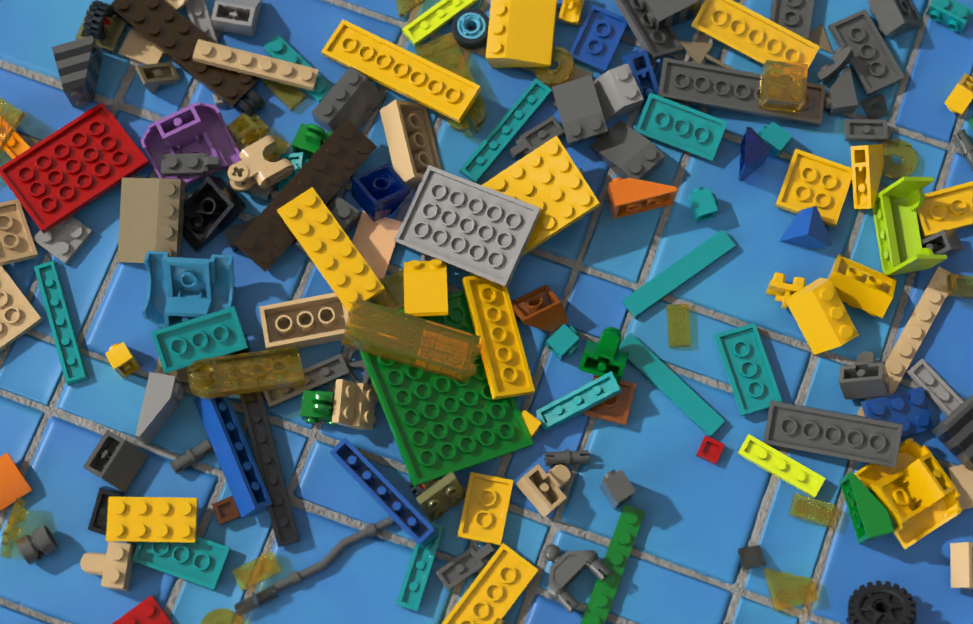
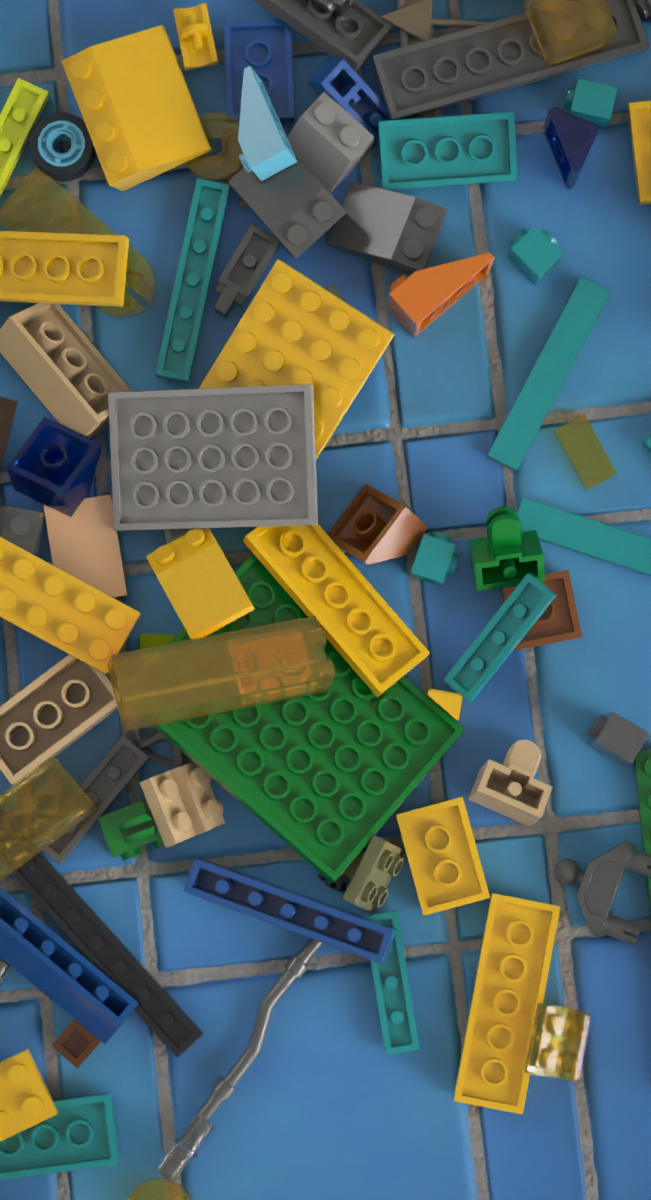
camera: 30 degrees left, 10 degrees up
(257, 570) = (165, 1106): clear yellow plate -> none
(393, 294) = (158, 618): clear yellow wing -> none
(464, 566) = (453, 952): dark grey hinge -> none
(566, 457) = (521, 725): dark grey pin -> none
(582, 67) = (260, 131): none -> medium azure slope

